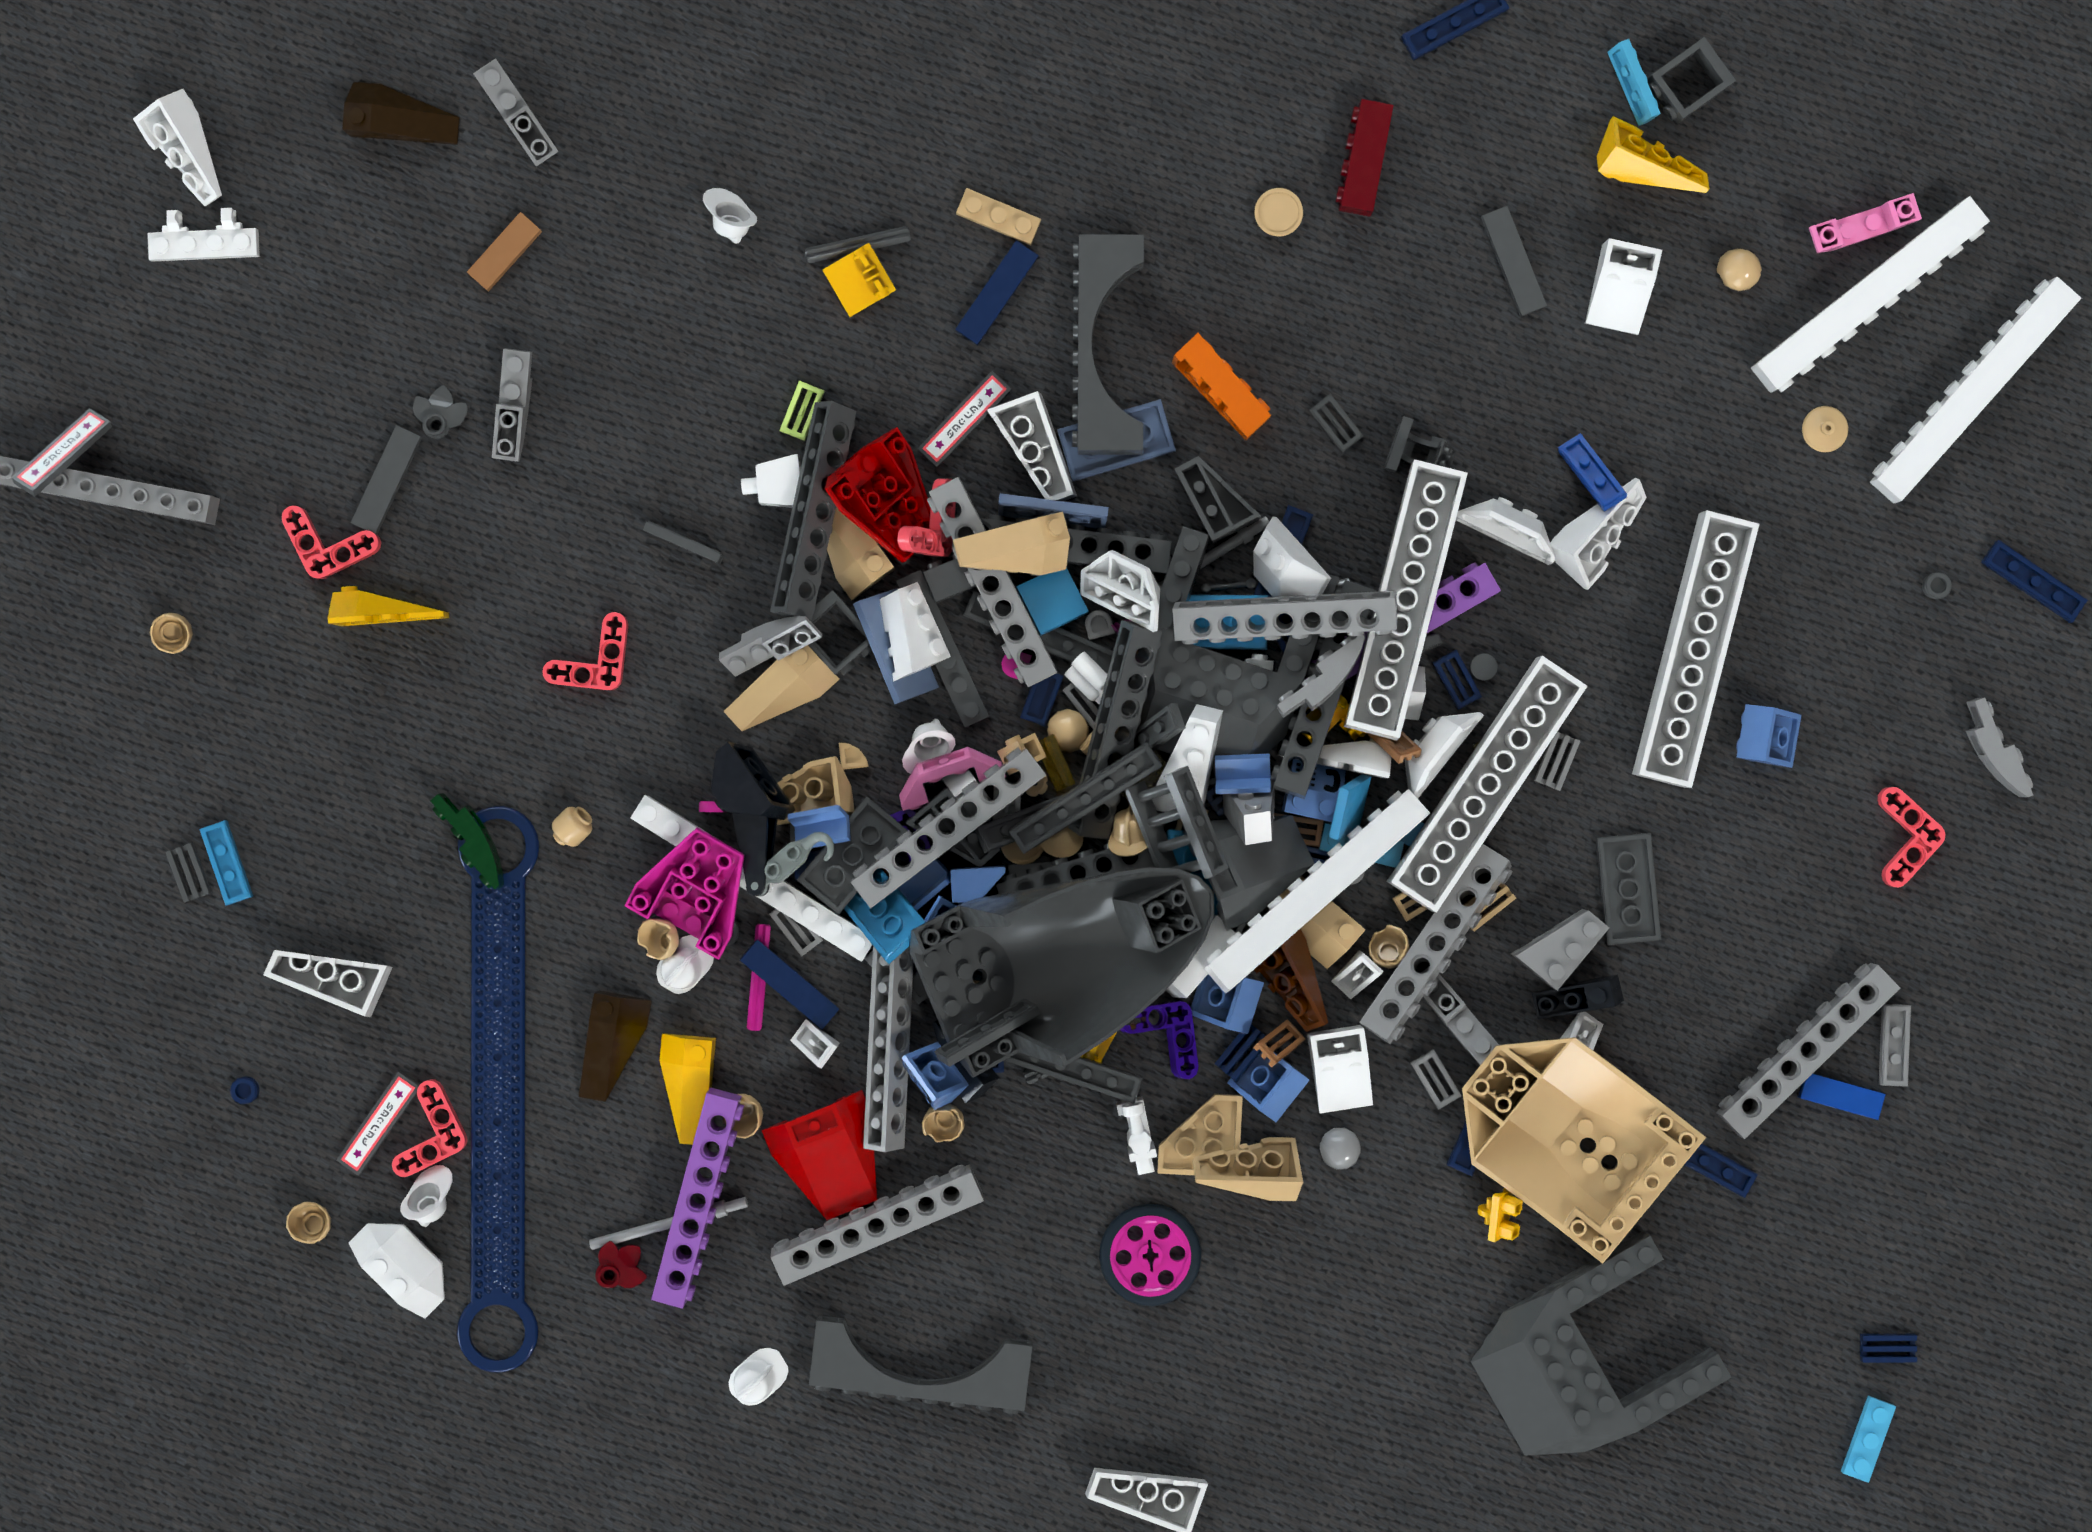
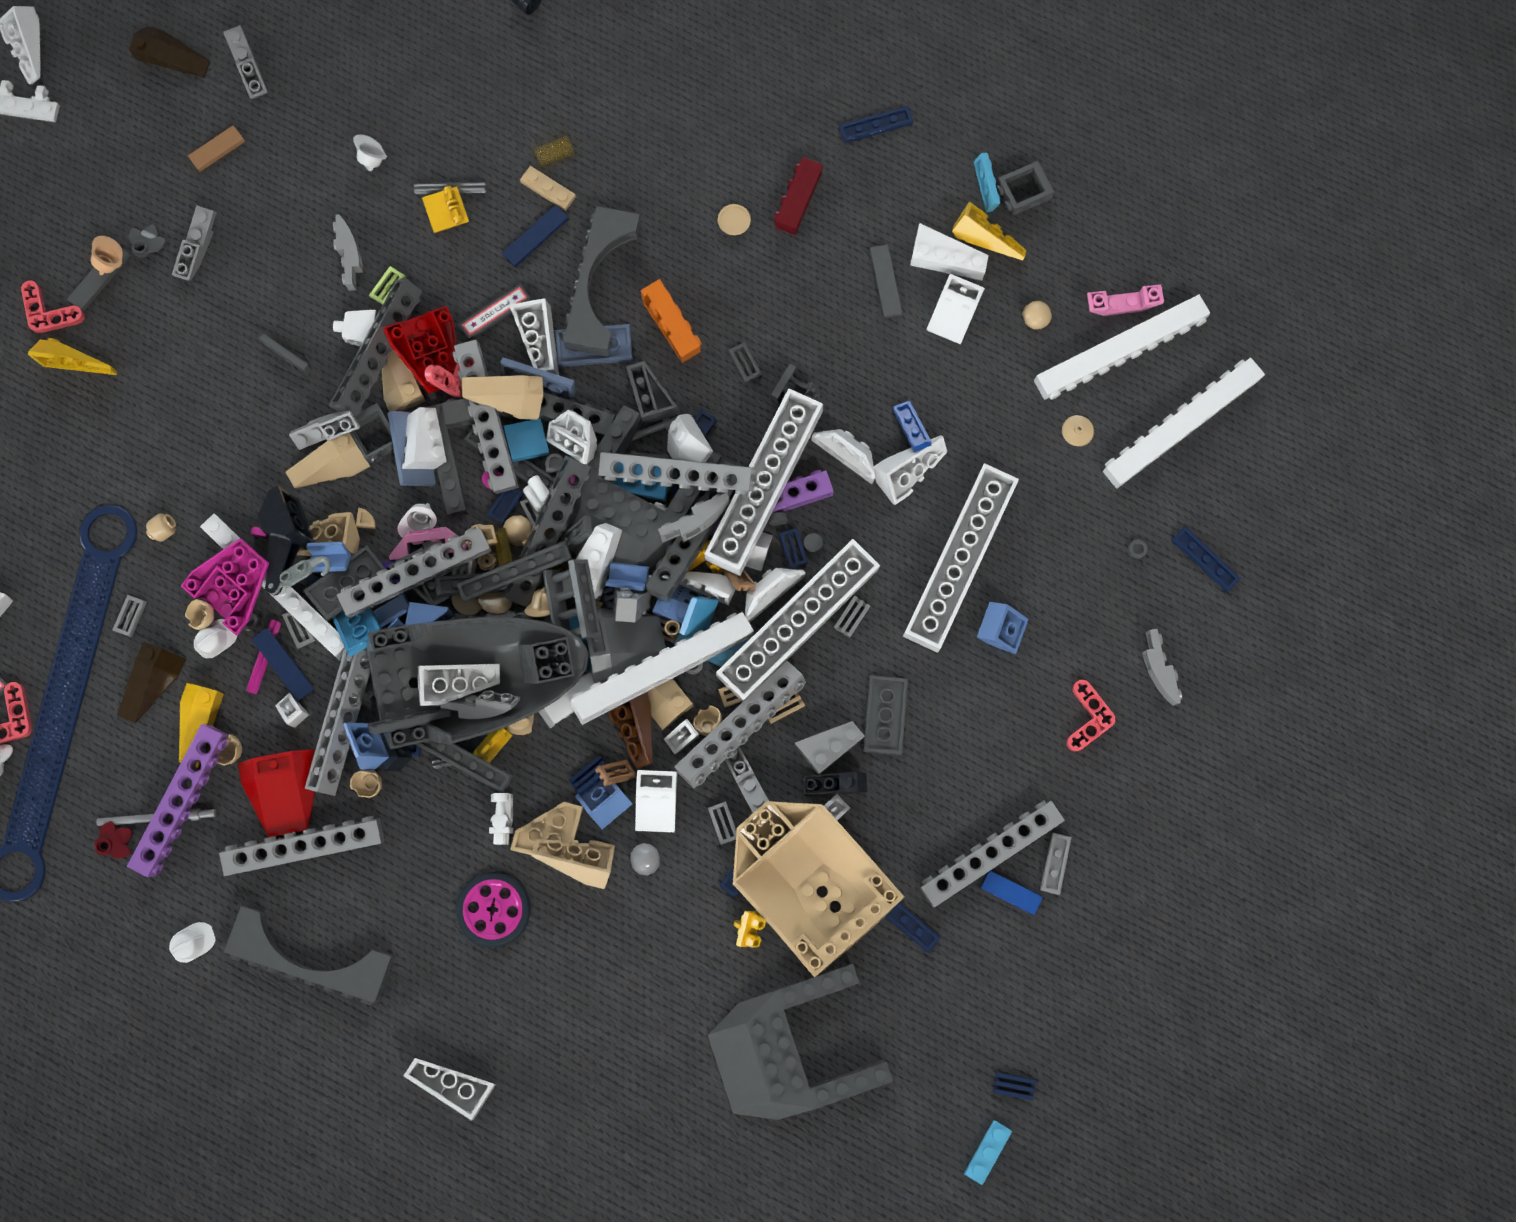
camera: 10 degrees right, 10 degrees down
(393, 448) = (106, 254): none -> light nougat piece
(479, 847) = (92, 525): dark green slope -> none
(570, 957) = (137, 616): none -> light grey tile
(596, 671) = (206, 428): coral beam -> none
(729, 363) = (349, 250): none -> light grey slope
(995, 158) = (554, 151): none -> clear yellow tile
(1028, 971) = (450, 682): none -> white wedge
(1086, 994) = (484, 706): none -> light grey slope
(1173, 1026) = (545, 747): dark purple beam -> none
(1230, 1009) = (587, 738): medium blue slope -> none
(1322, 826) = (672, 623): none -> tan hose
(1592, 205) = (947, 255): none -> white wedge

